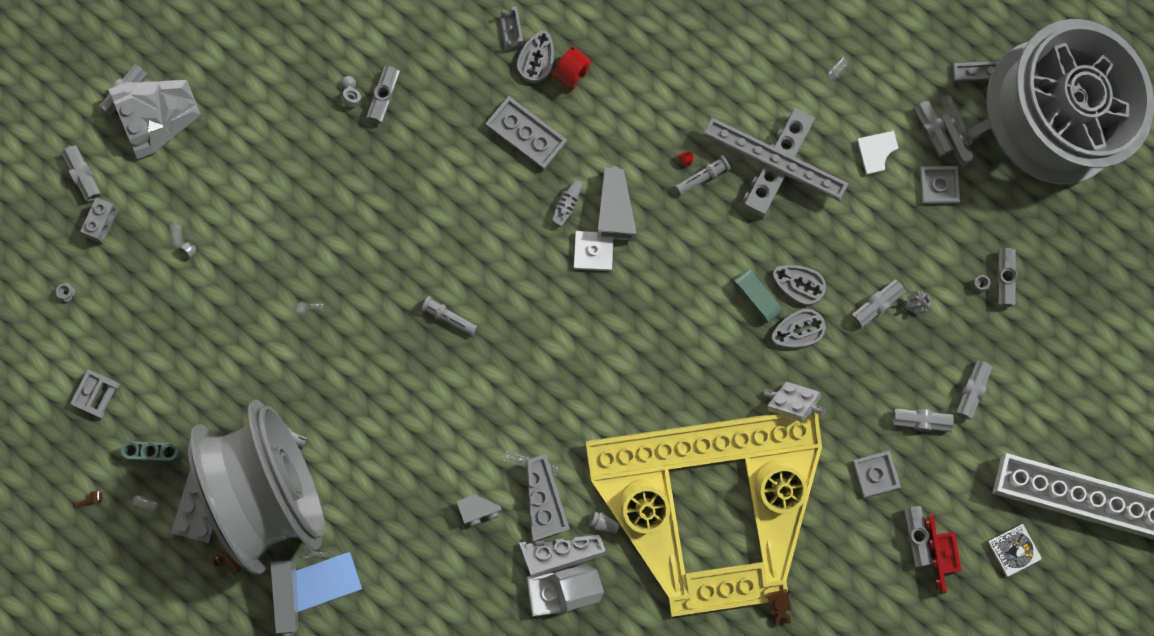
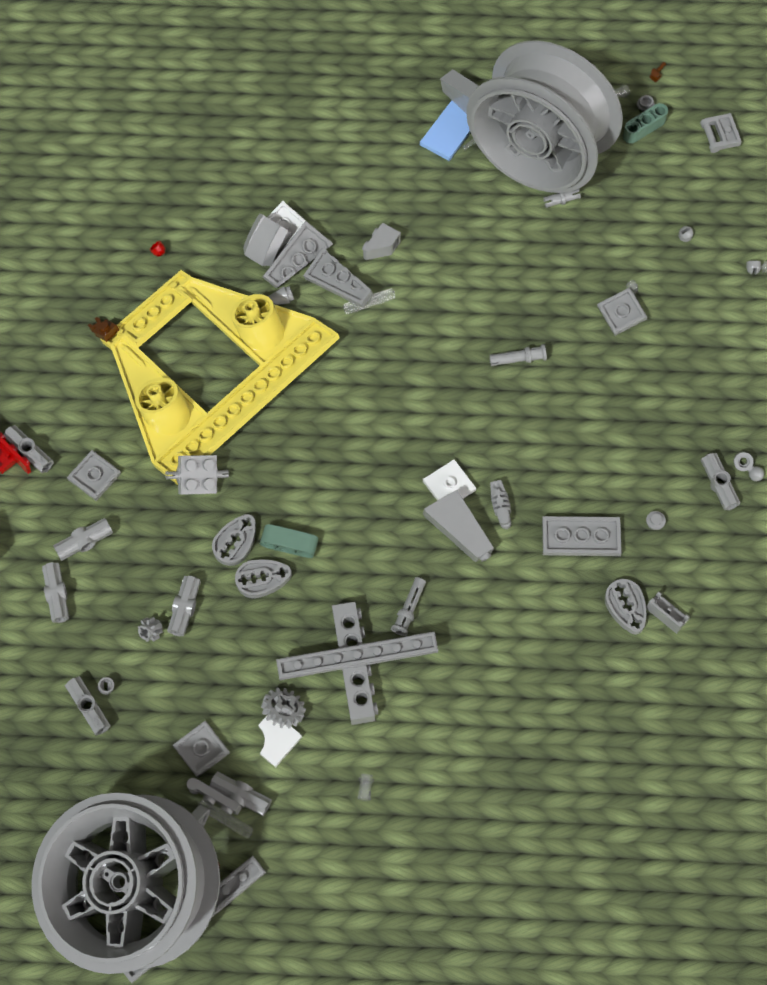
camera: 145 degrees right, 10 degrees down
(131, 474) = (645, 103): none -> light grey plate
(212, 327) = (687, 236): none -> light grey hinge
(330, 292) = (622, 311): none -> light grey tile
(458, 103) = (655, 520): none -> light grey plate
(571, 67) = (589, 610): red brick -> none
(686, 157) = (439, 611): red hinge -> none
(861, 167) = (283, 708): none -> light grey gear

